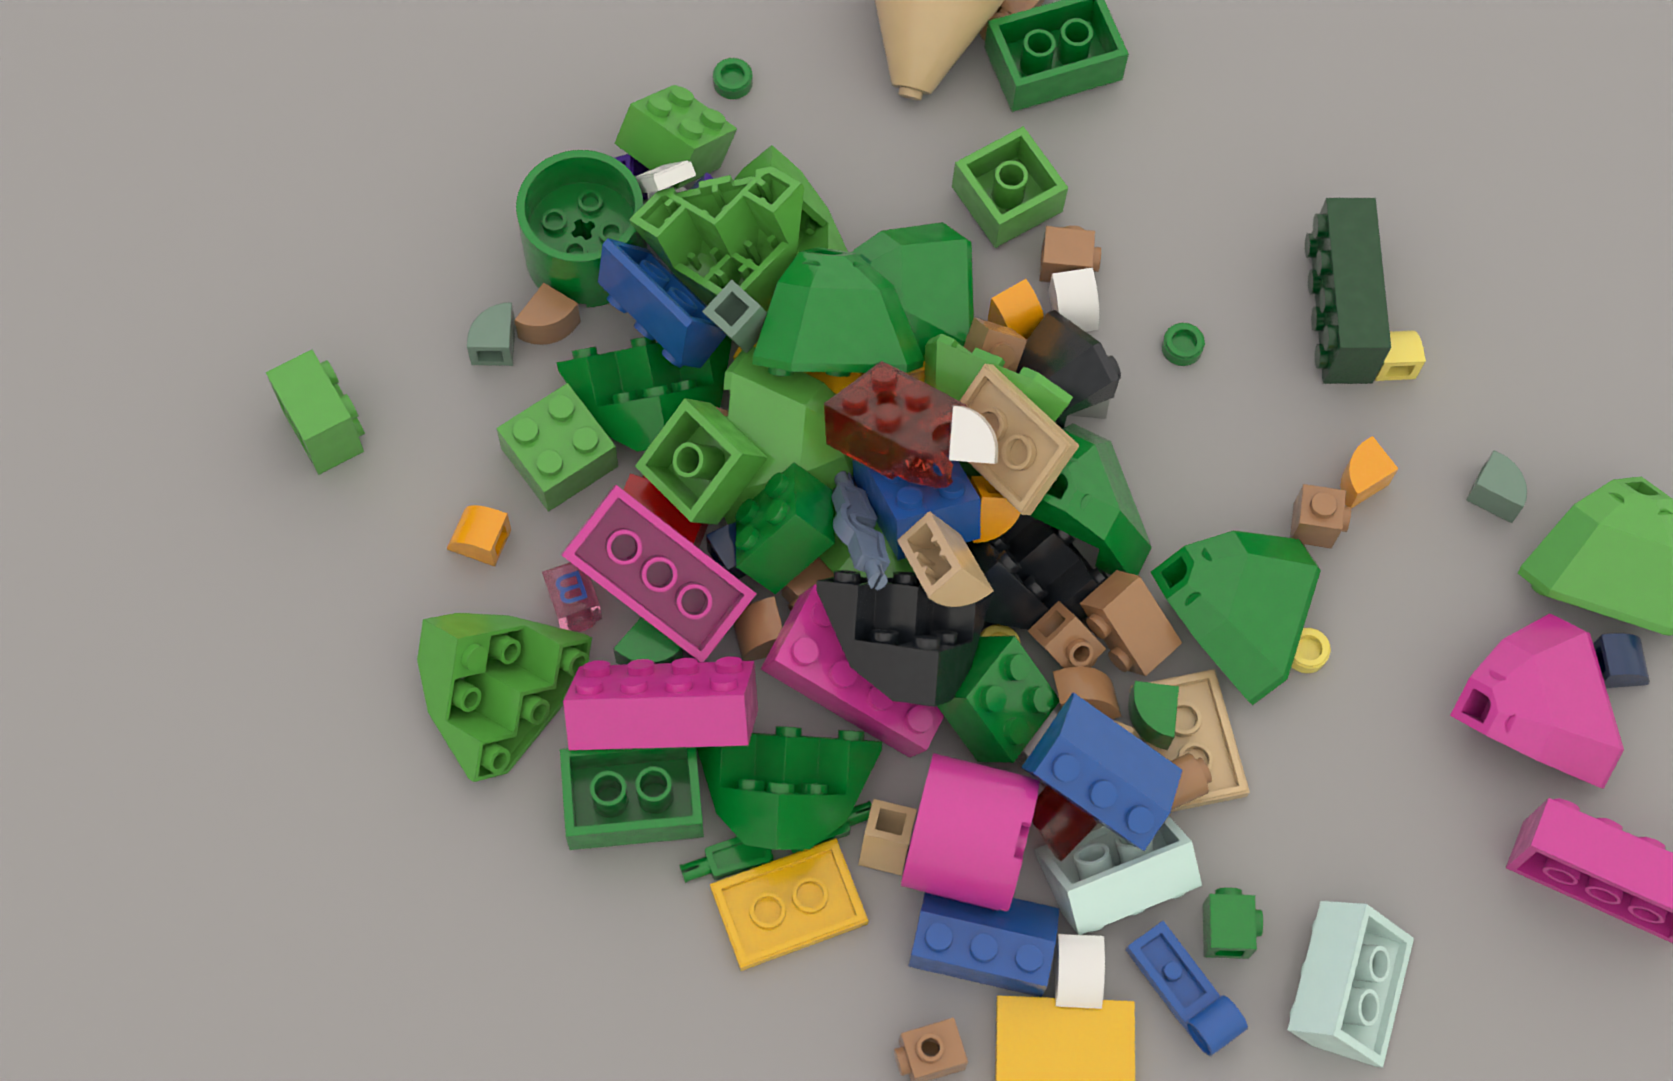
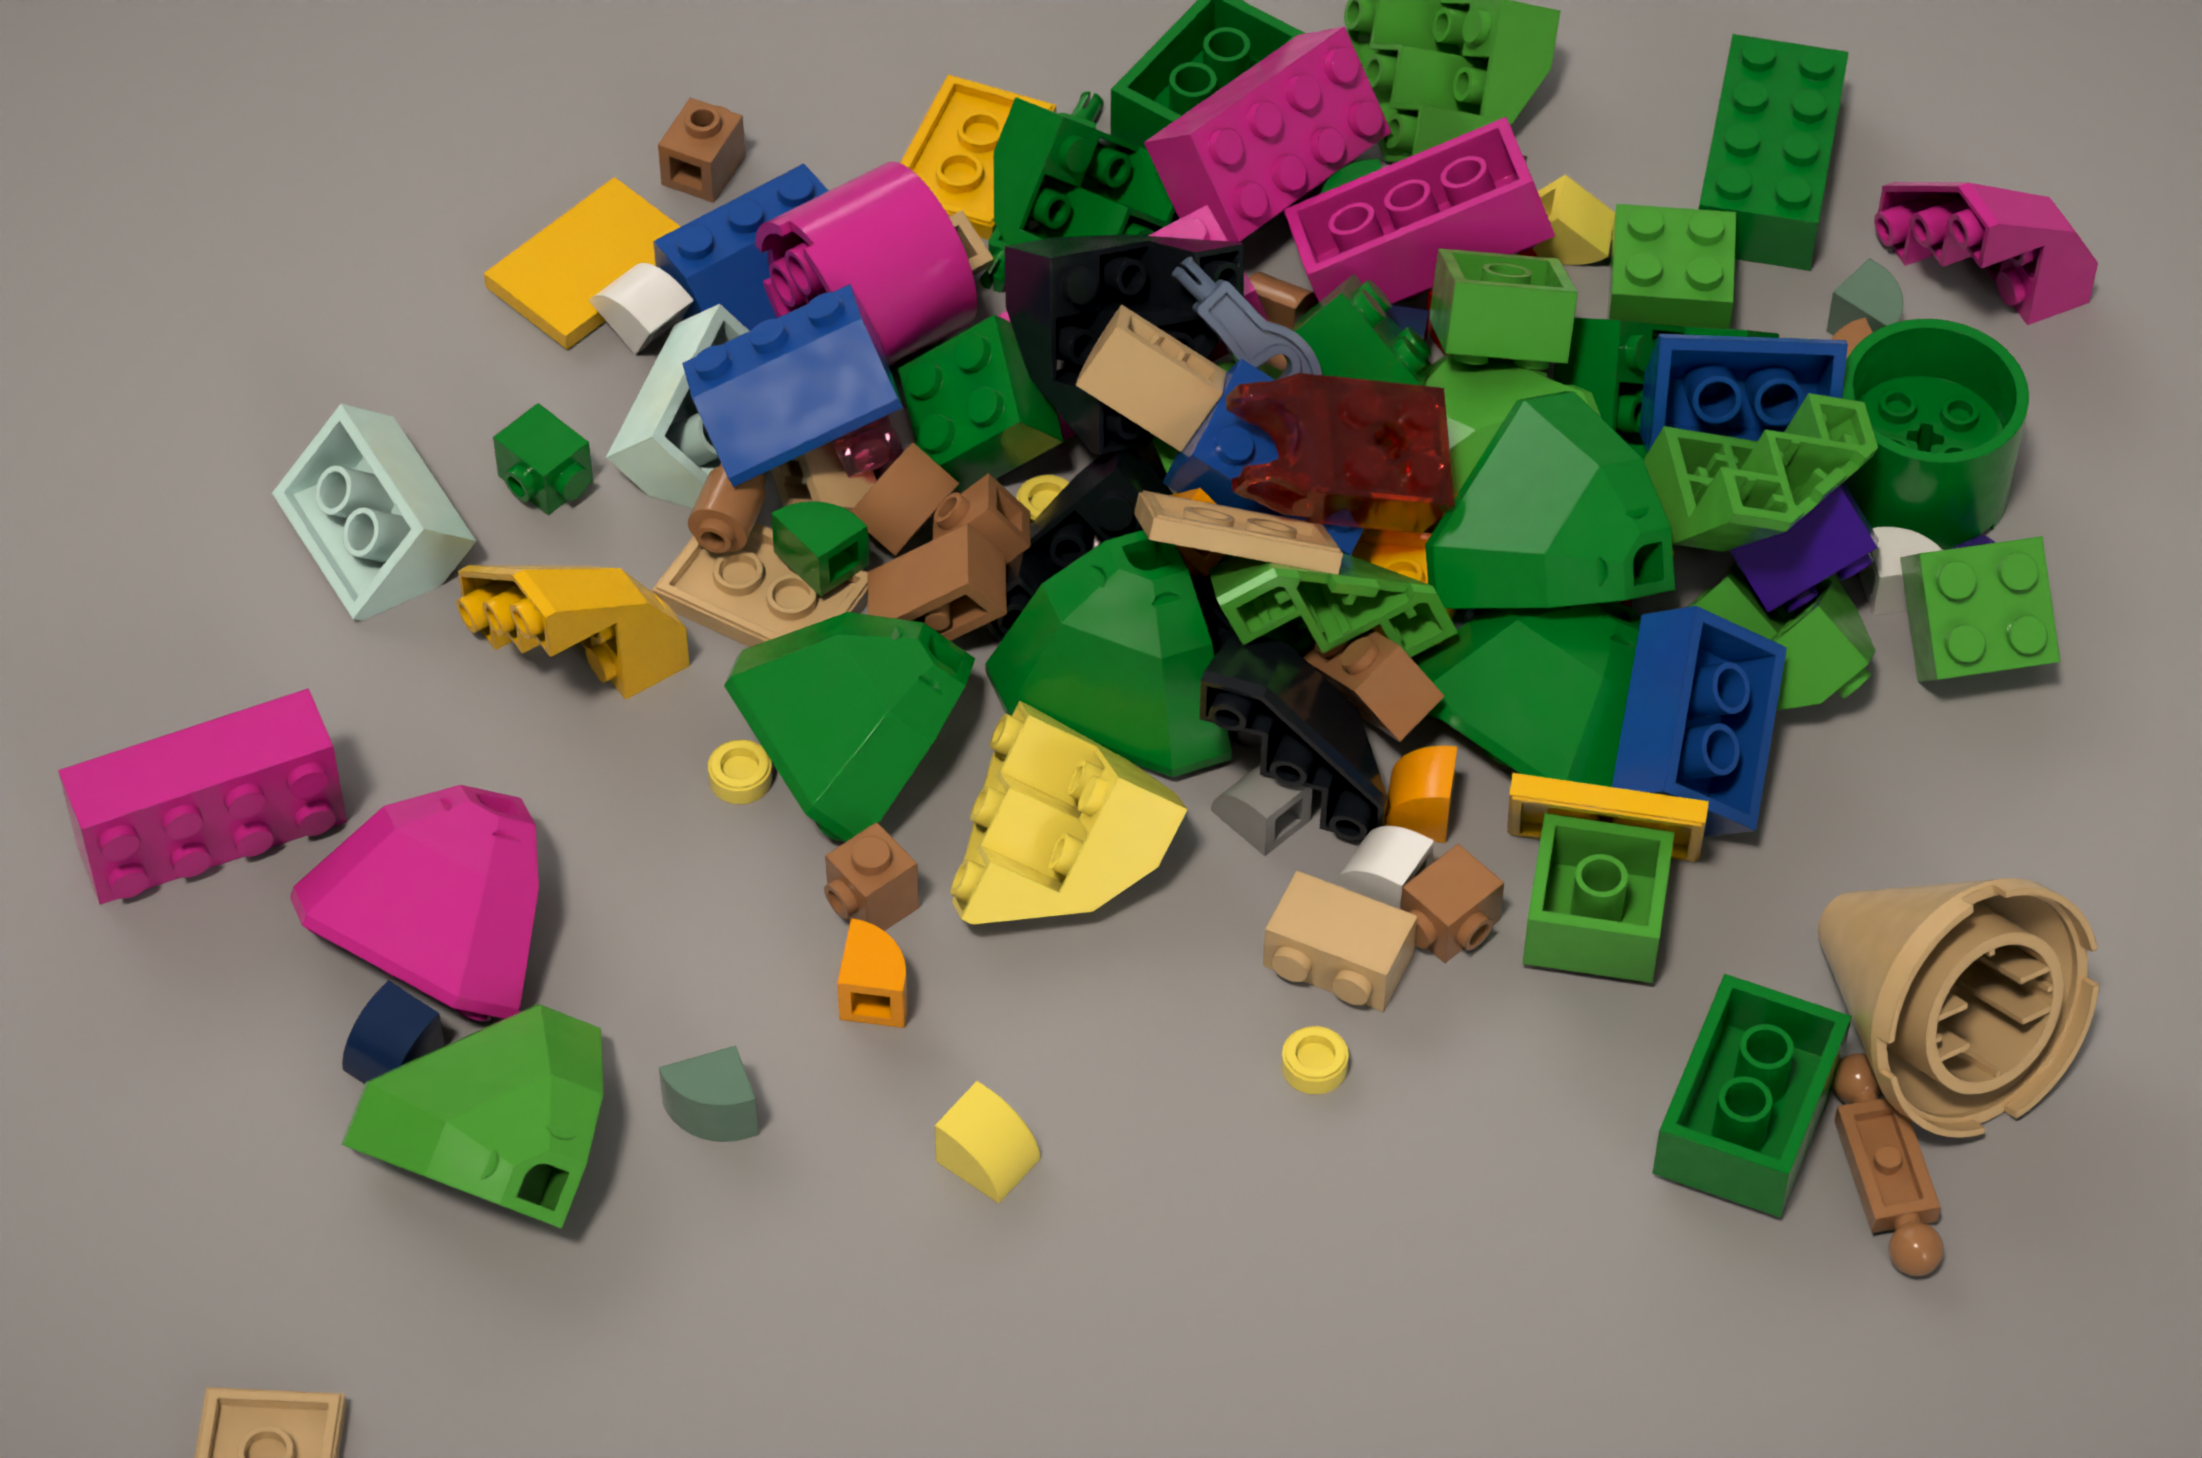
camera: 135 degrees right, 15 degrees down
(317, 410) = (1909, 92): bright green brick -> none
(400, 297) = (2010, 233): none -> dark pink brick
(413, 464) = (1774, 146): none -> green brick
(481, 534) = (1631, 164): light orange brick -> none
(555, 529) = (1579, 222): none -> light yellow brick
(665, 176) = (1903, 491): white tile -> none
(732, 78) = (2036, 769): green tile -> none
(737, 315) = (1641, 407): sand green brick -> none
(882, 193) = (1701, 715): none -> blue brick
(960, 199) = (1536, 795): none -> yellow tile
(972, 437) = (1251, 430): white brick -> none
(1138, 286) = (1339, 941): none -> tan brick
(1183, 344) = (1223, 949): green tile -> none
(1186, 990) = (481, 376): blue plate -> none
(1199, 460) = (1058, 824): none -> light yellow brick
(1203, 258) = (1315, 1060): none -> light yellow tile
(1329, 791) = (619, 621): none -> yellow brick
(1348, 291) = (1111, 1122): dark green brick -> none

